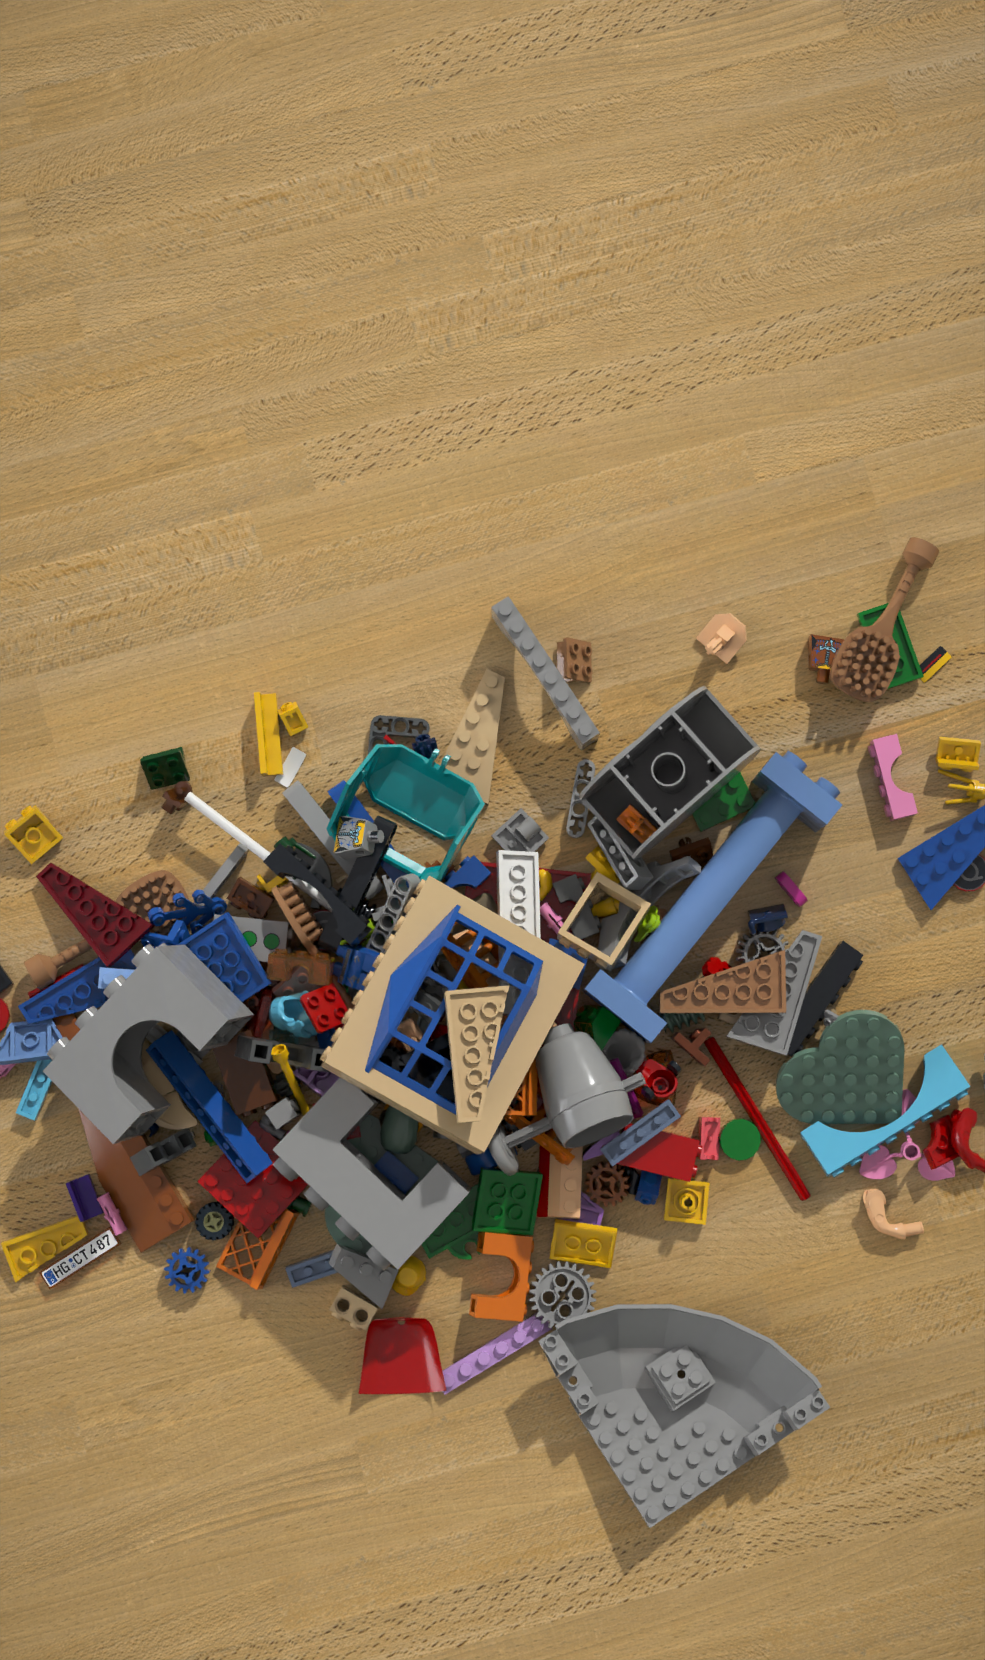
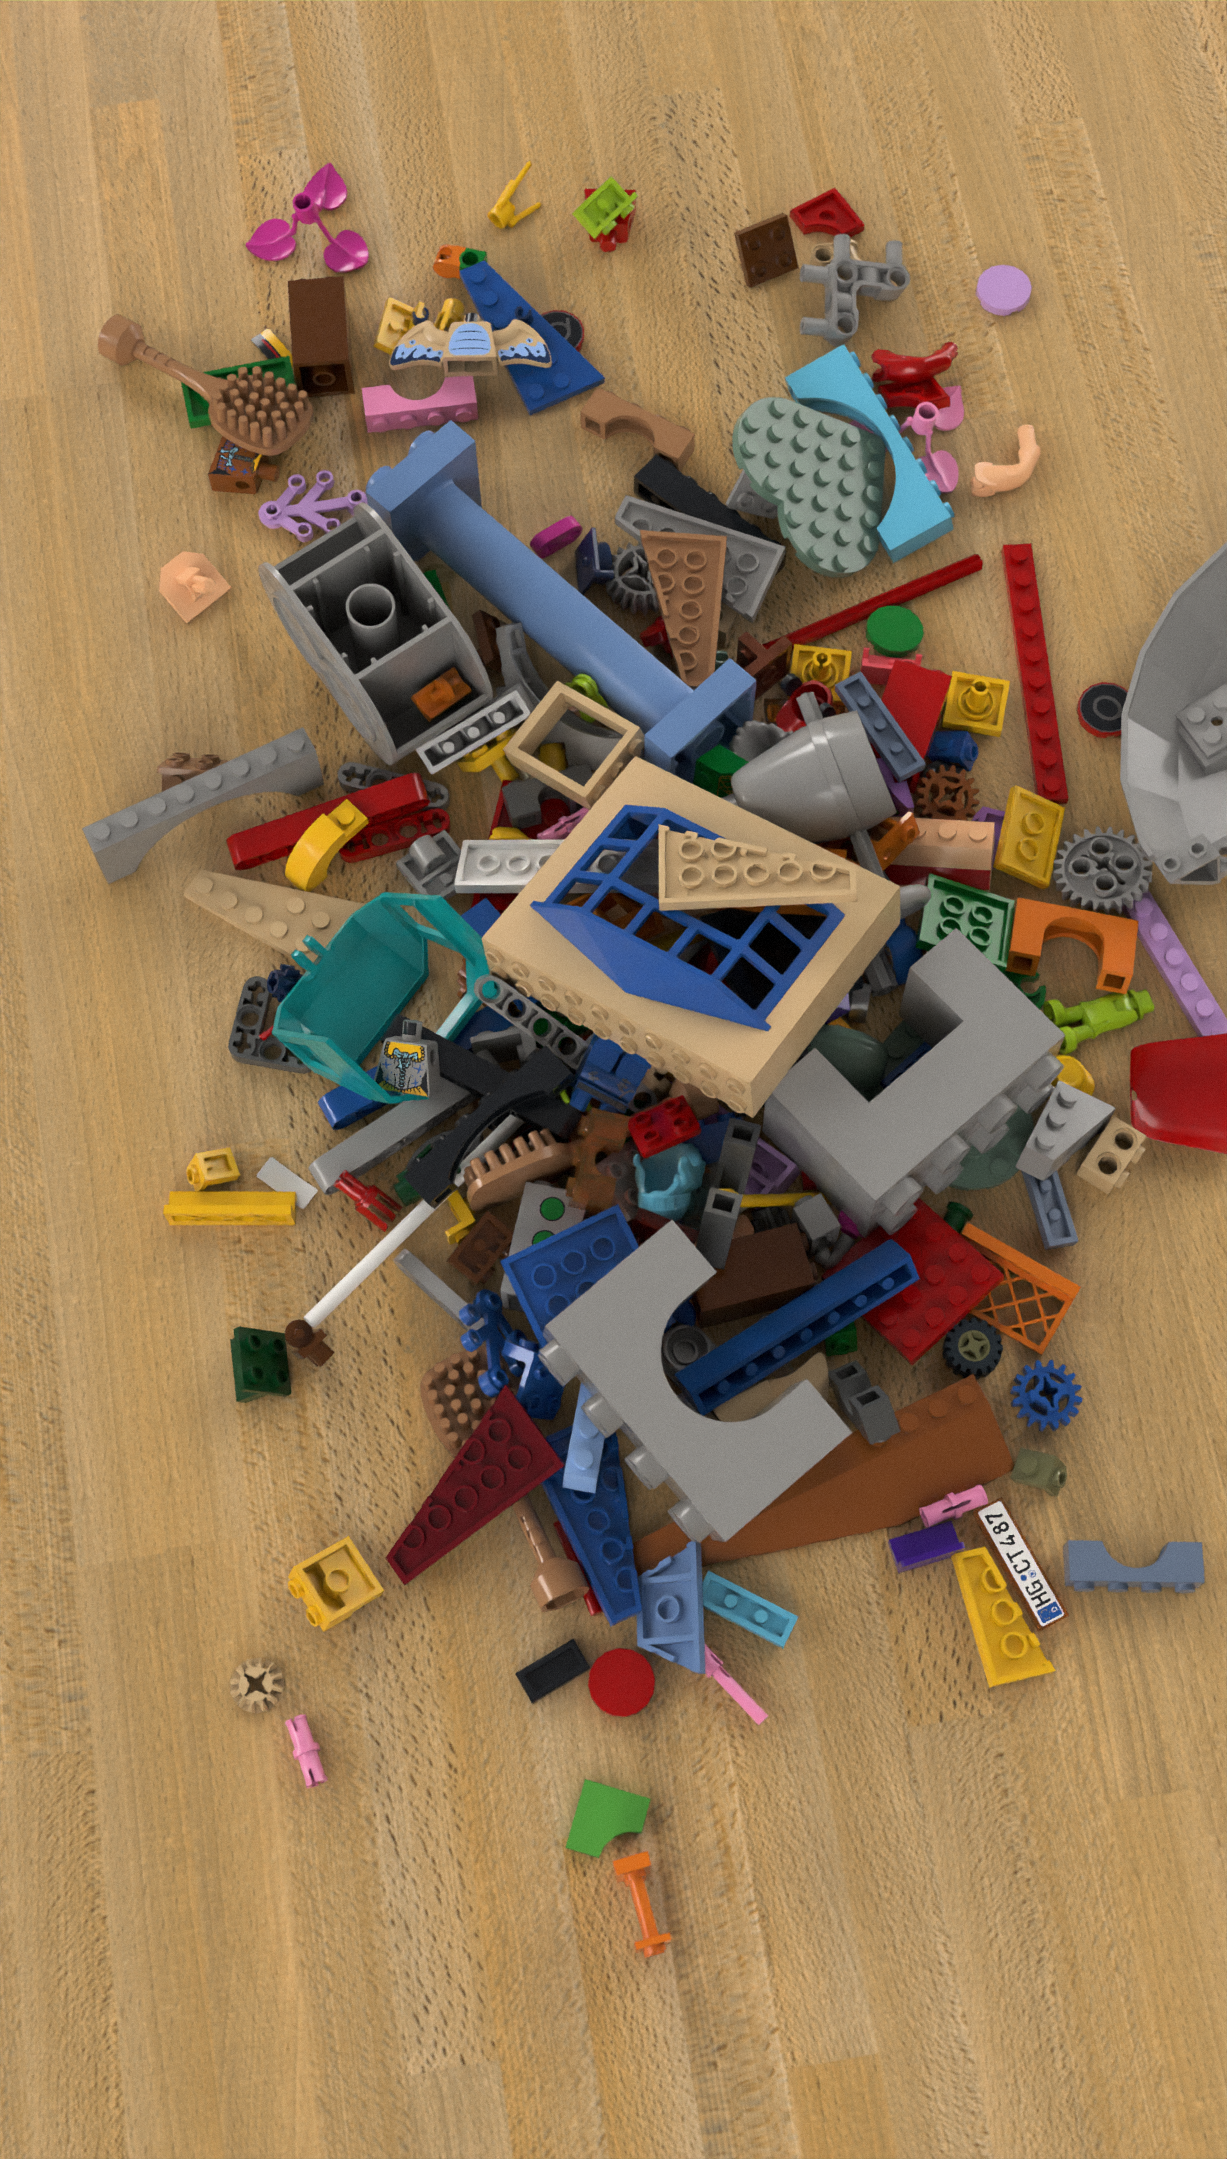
camera: 90 degrees left, 15 degrees down
(84, 1356) = (1091, 1566): none -> sand blue arch
(138, 1267) = (1039, 1471): none -> olive bracket
(278, 820) = (366, 1197): none -> red arm
(454, 1296) = (1097, 1016): none -> lime piece
(526, 759) = (320, 843): none -> yellow arch
(545, 803) = (392, 831): none -> red beam
(546, 758) = (279, 837): none -> red beam
(693, 1293) = (1102, 709): none -> black tile
(698, 1088) = (821, 665): none -> yellow plate
(718, 1242) = (1034, 673): none -> red plate
(797, 708) = (308, 507): none -> lavender plant
(899, 915) = (608, 415): none -> medium nougat arch
(937, 810) = (471, 346): none -> torso
(938, 697) = (321, 336): none -> reddish brown brick

